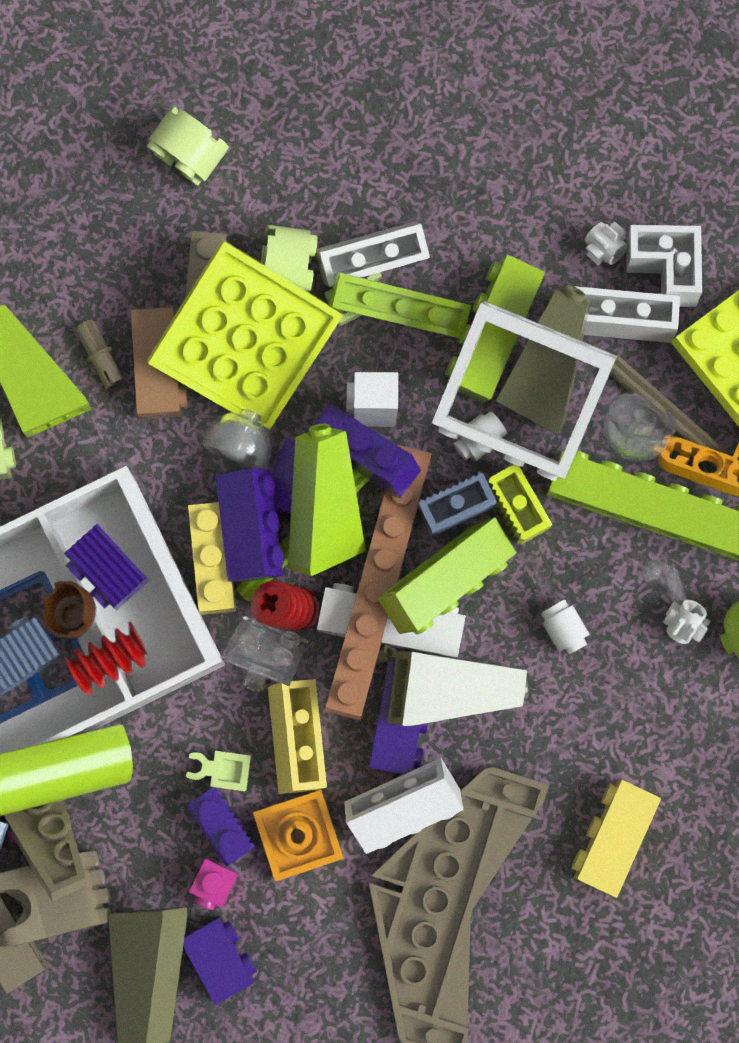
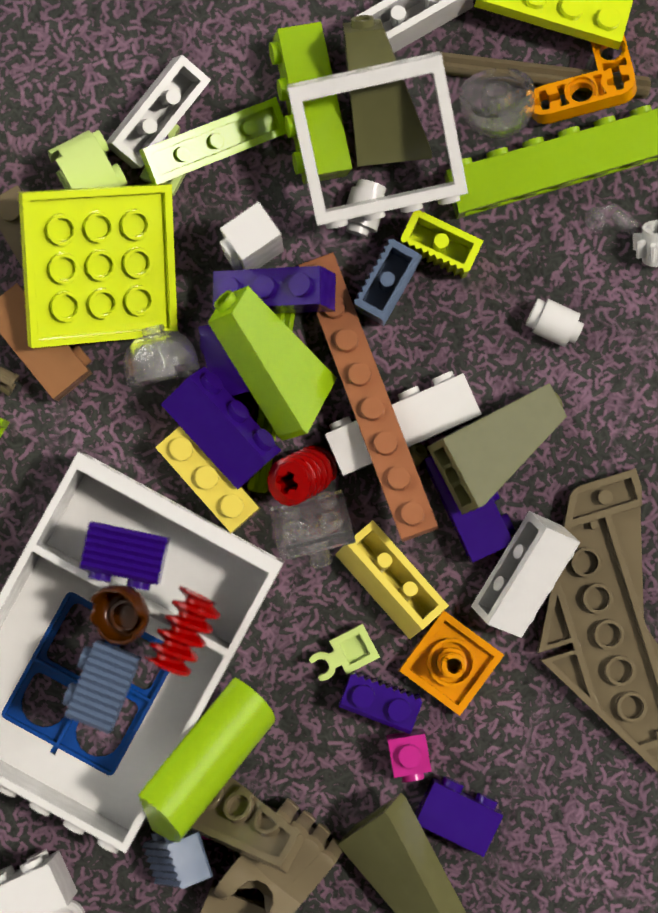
camera: 25 degrees left, 5 degrees up
(447, 576) = (424, 351): lime brick -> none

